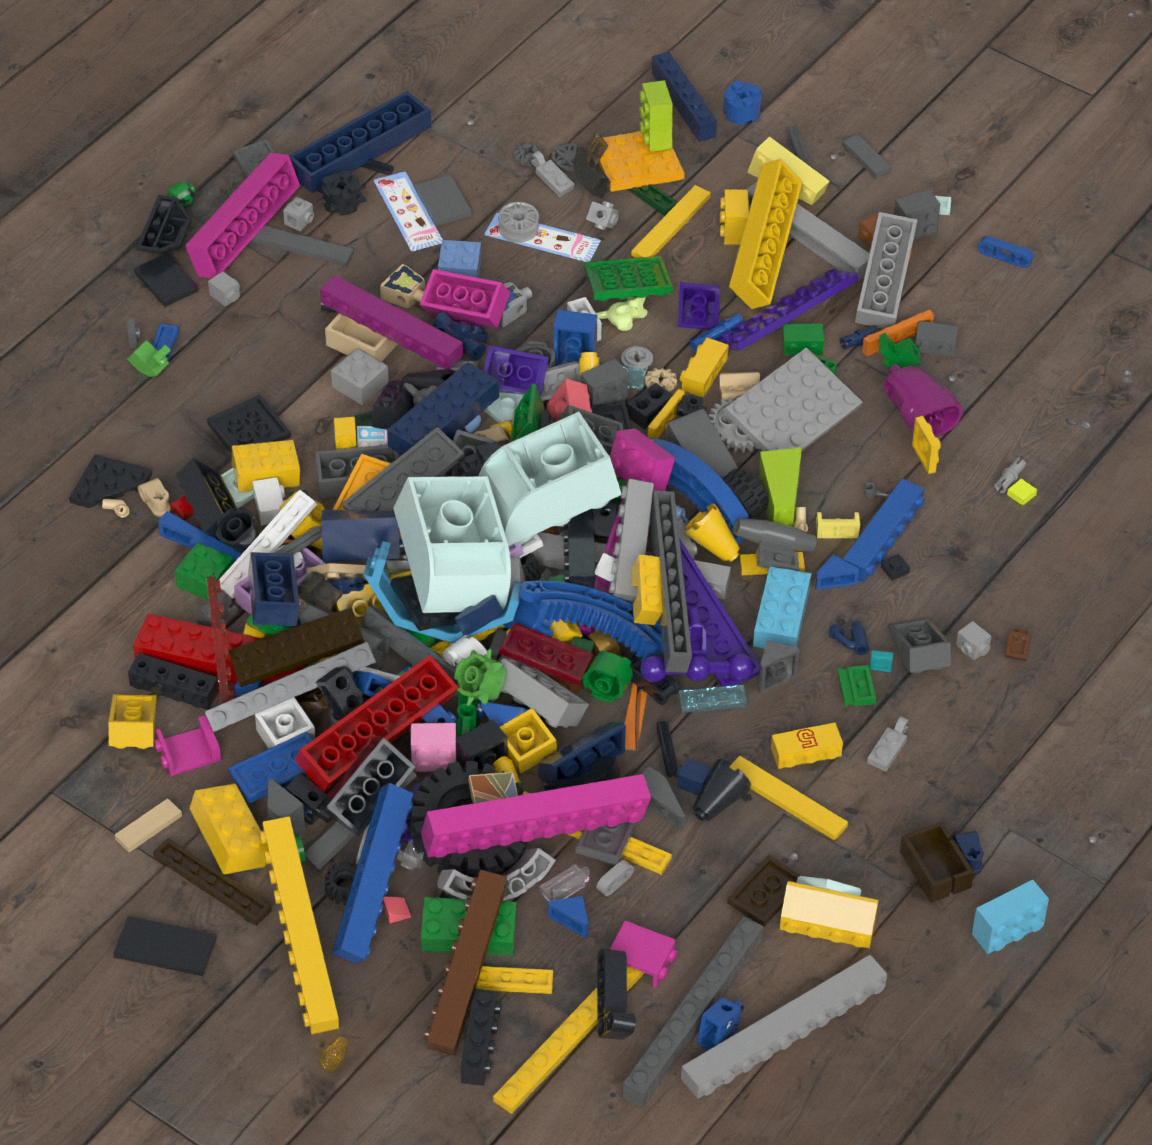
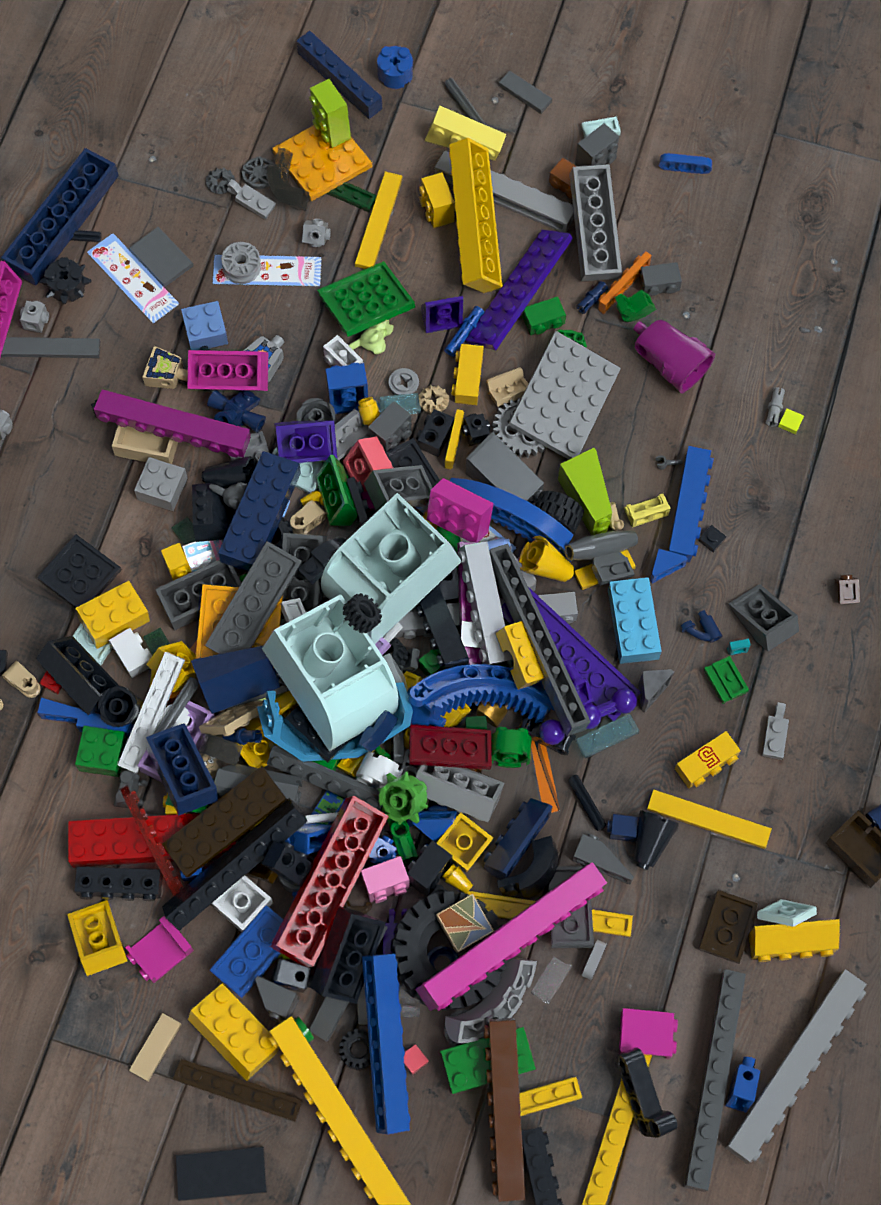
camera: 20 degrees left, 20 degrees up
(501, 496) = (362, 613): none -> black tyre
(570, 913) = (571, 1012): blue slope -> none
(926, 444) = (695, 401): yellow plate -> none
(973, 640) = (809, 598): light grey brick -> none

